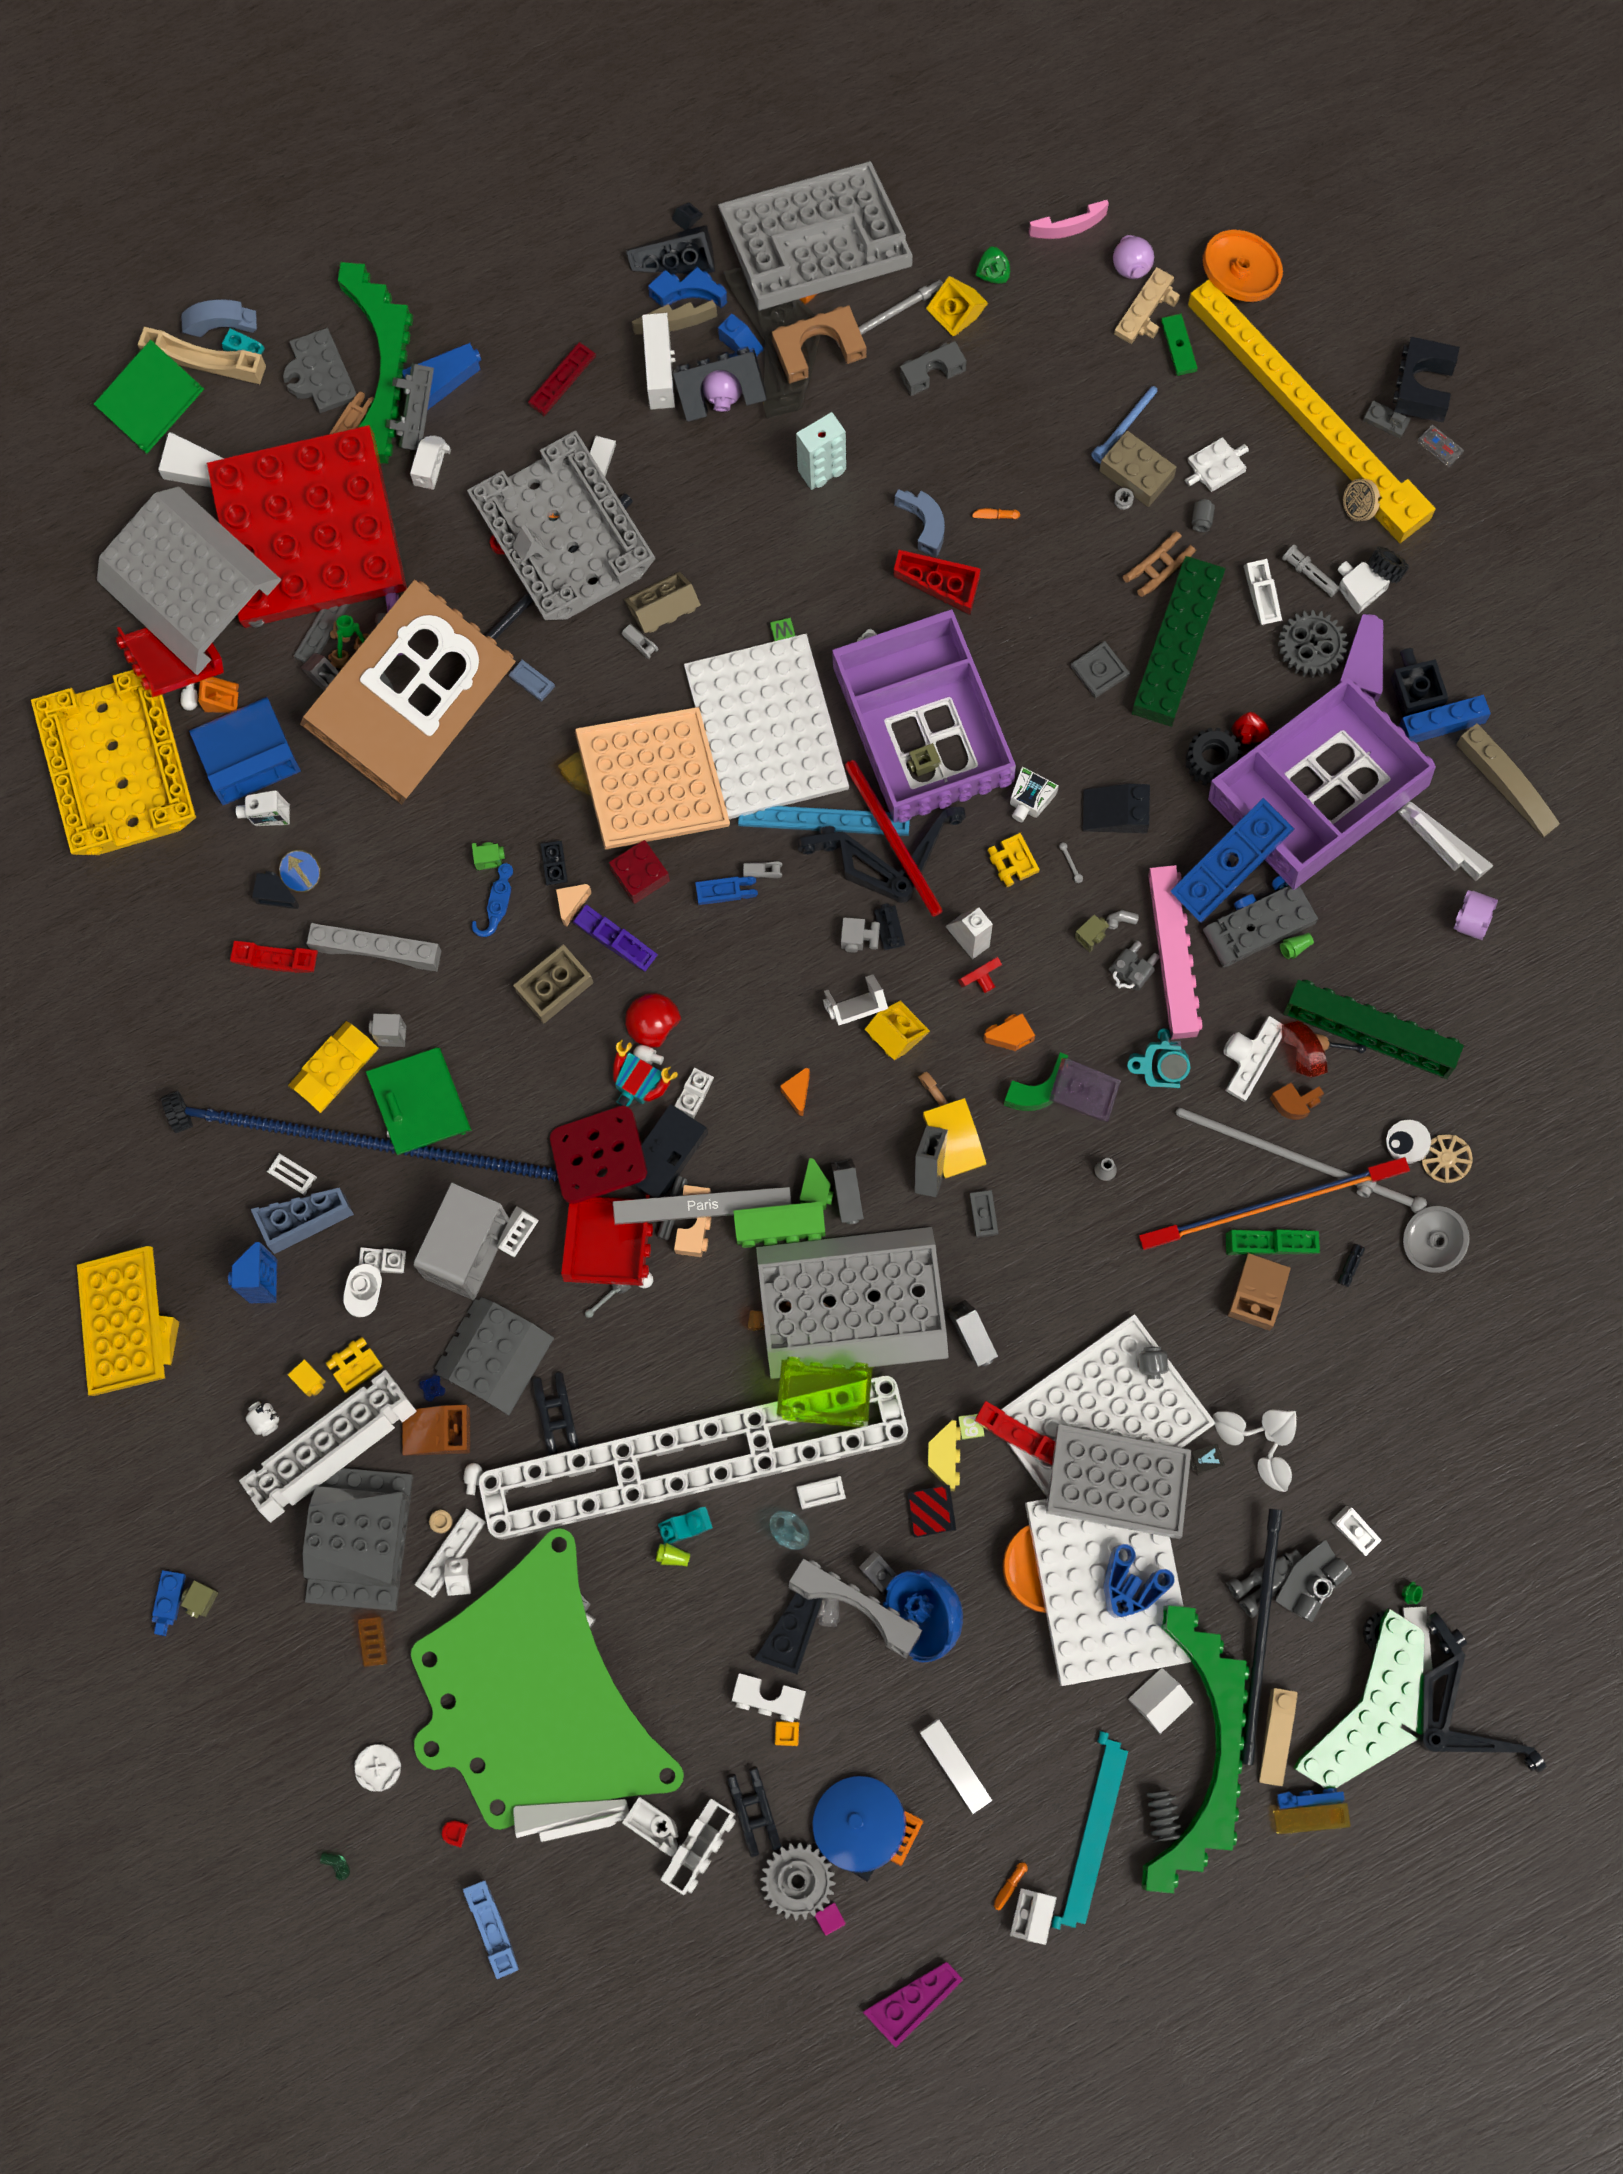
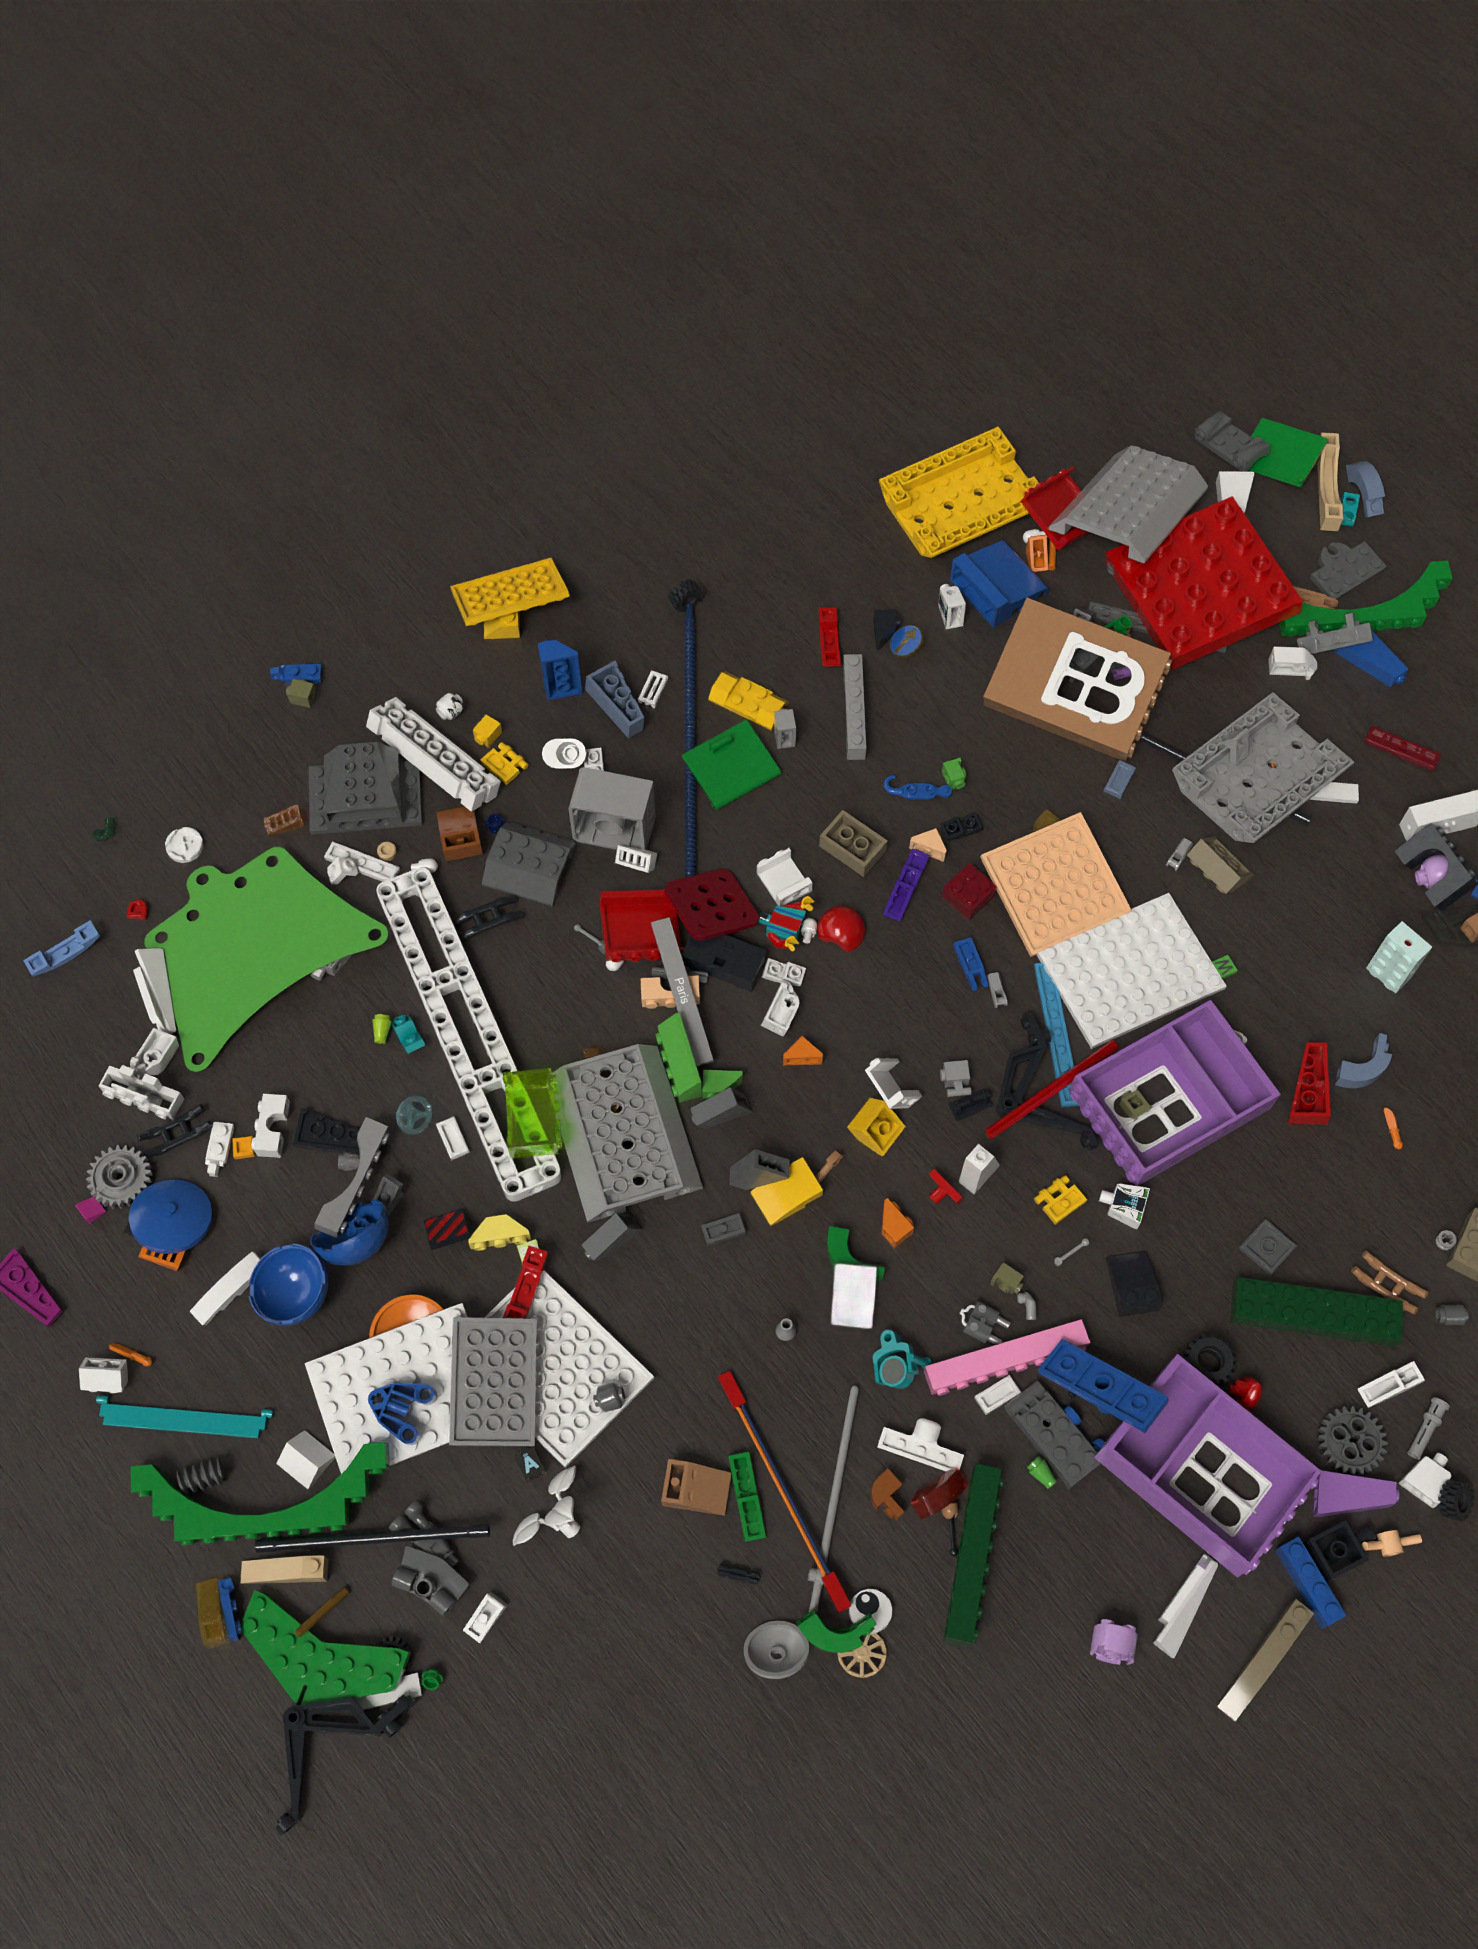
camera: 75 degrees right, 10 degrees down
(119, 446) = (1230, 442): none -> dark grey piece
(577, 1071) = (783, 878): none -> white panel
(746, 1107) = (779, 1015): none -> white piece
(780, 1762) = (218, 1147): none -> white hinge
(972, 1692) = (288, 1285): none -> blue piece
(1209, 971) = (997, 1395): none -> white tile
(1330, 1700) = (319, 1614): none -> pearl gold bar
(1417, 636) = (1391, 1543): none -> light nougat piece
(1436, 1176) = (835, 1639): none -> green arch

